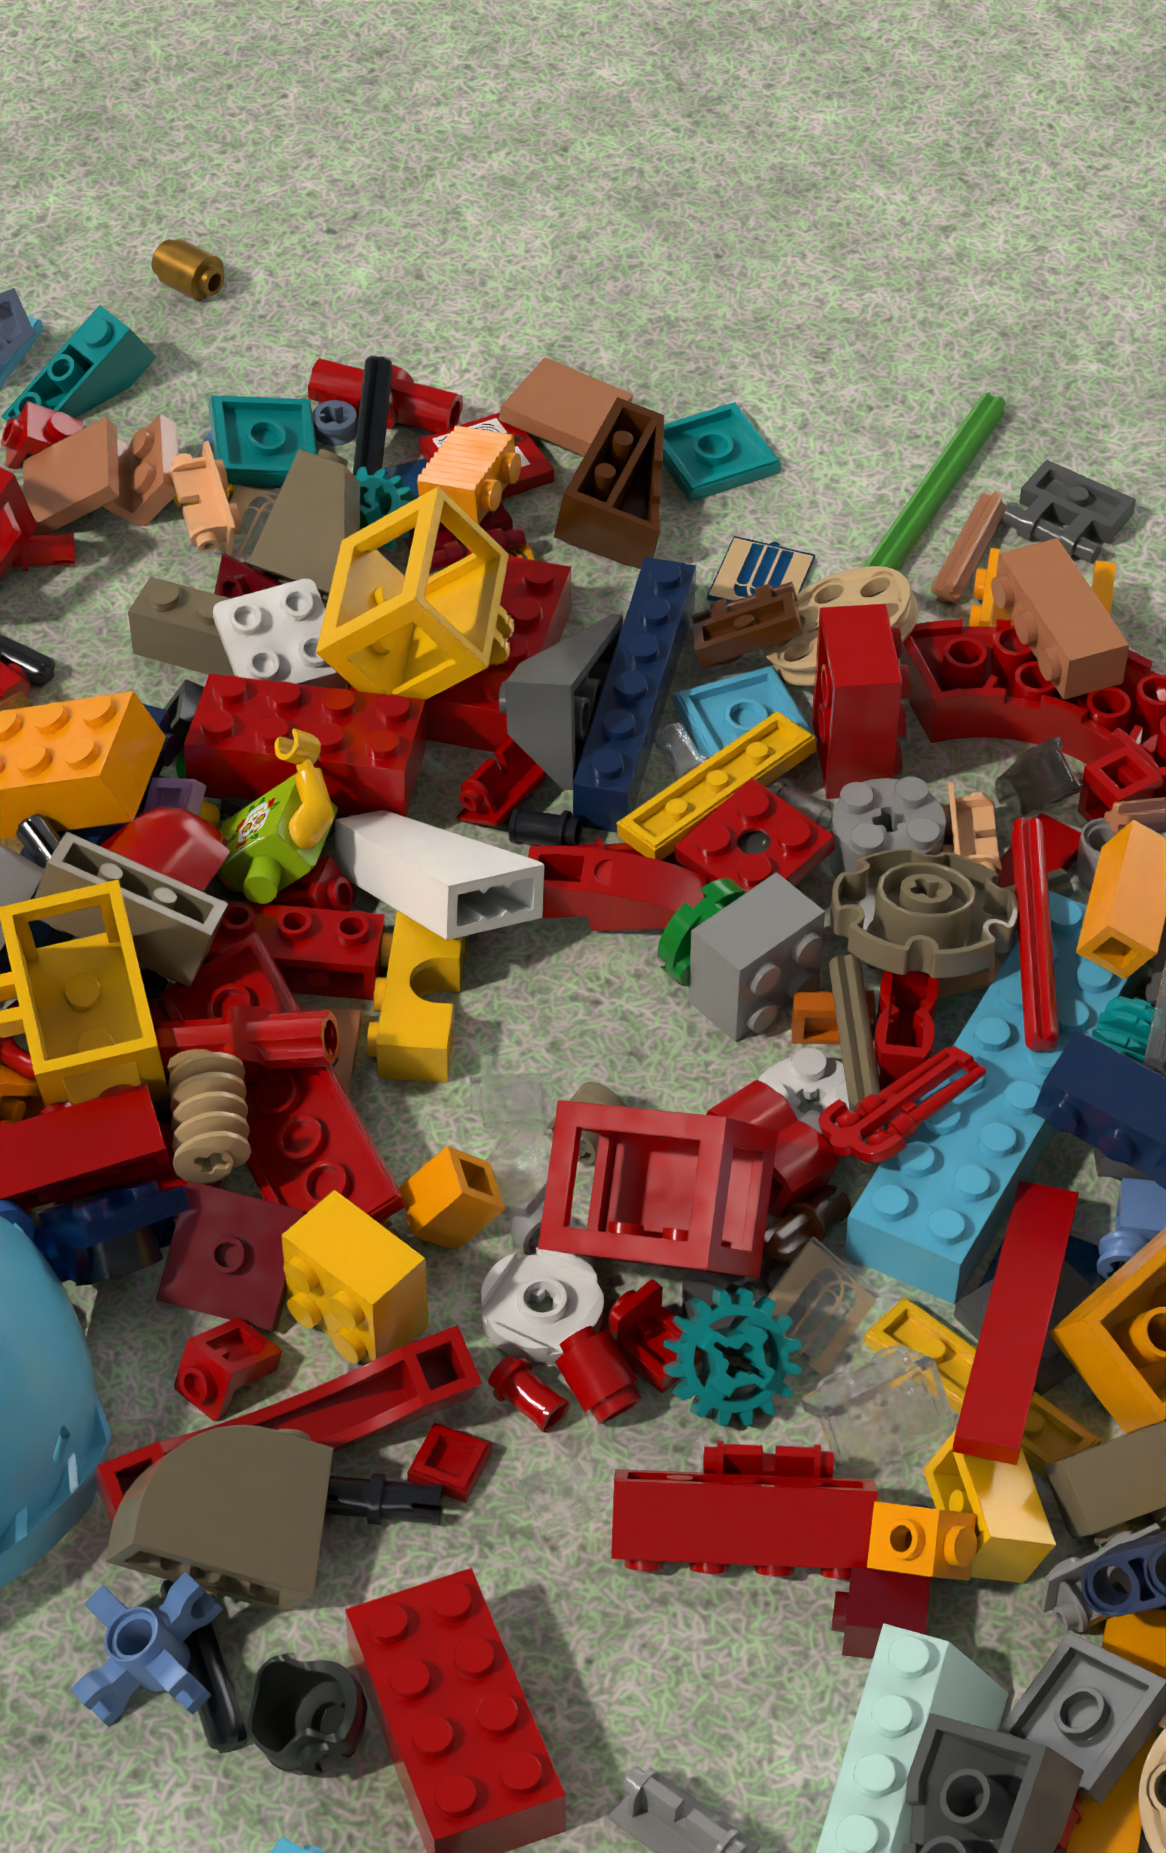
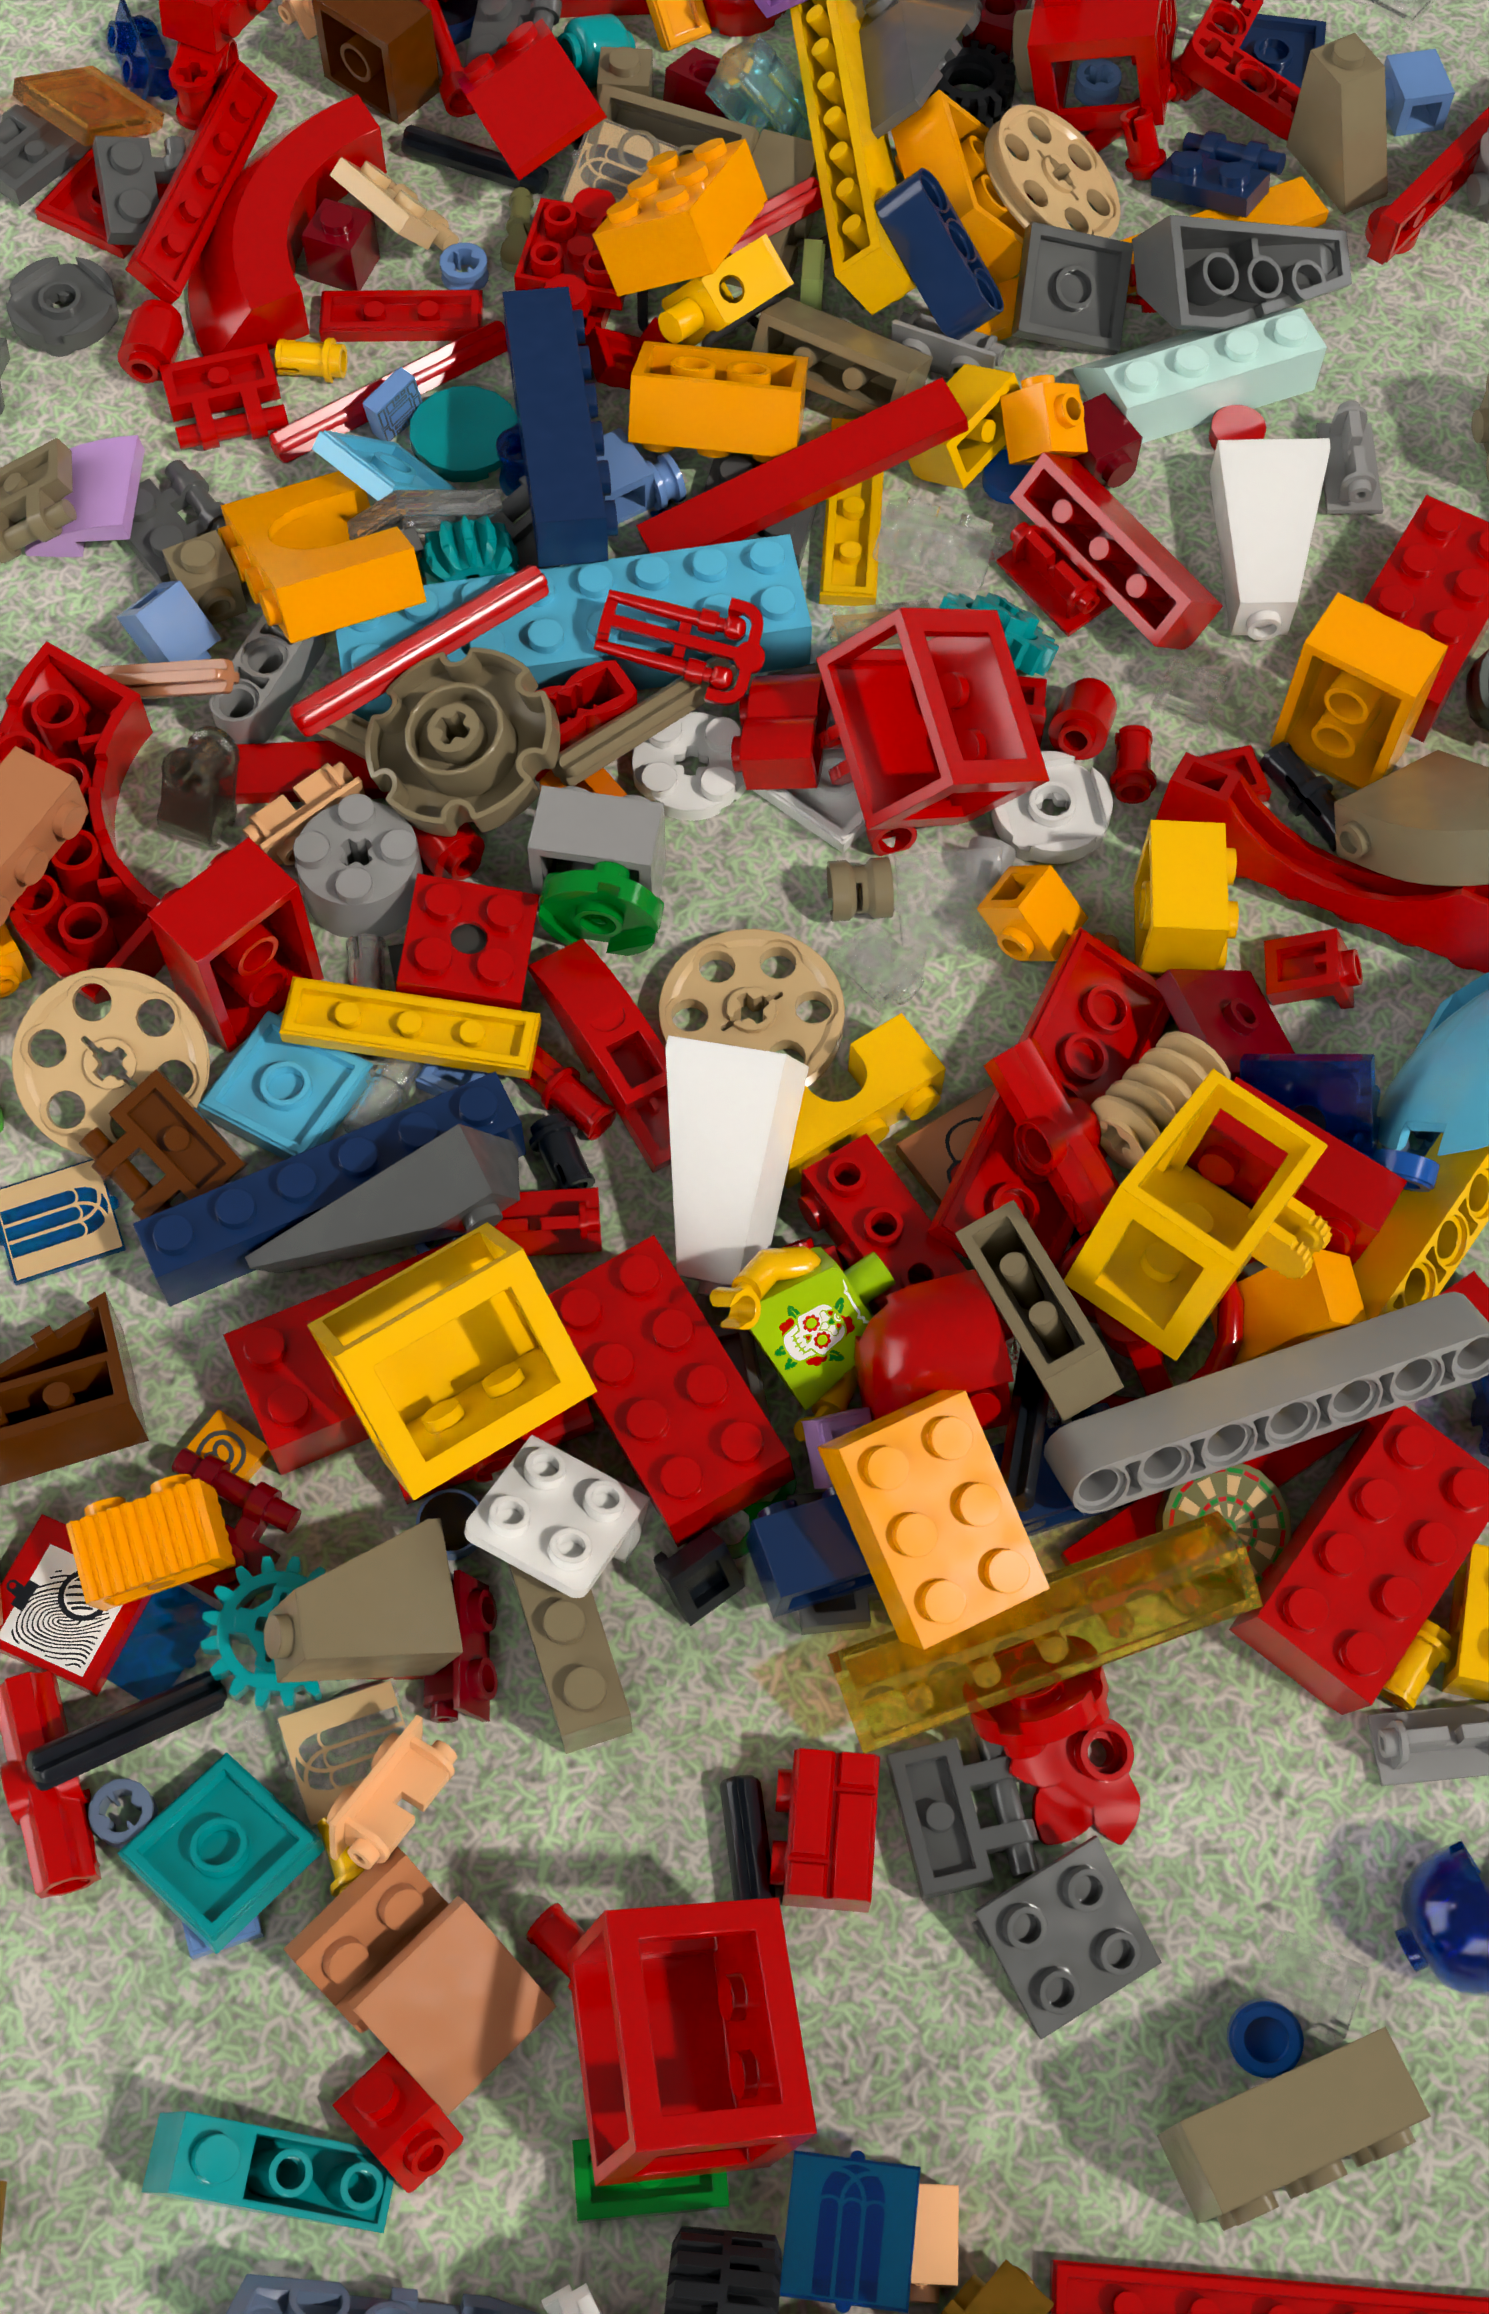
camera: 130 degrees left, 15 degrees up
(402, 1513) = (1357, 692): none -> light orange brick
(572, 1010) = (752, 988): none -> tan wedge
(669, 1678) = (1264, 525): none -> white slope
(808, 1769) = (1236, 423): none -> tile
(1114, 779) = (162, 719): red brick -> none

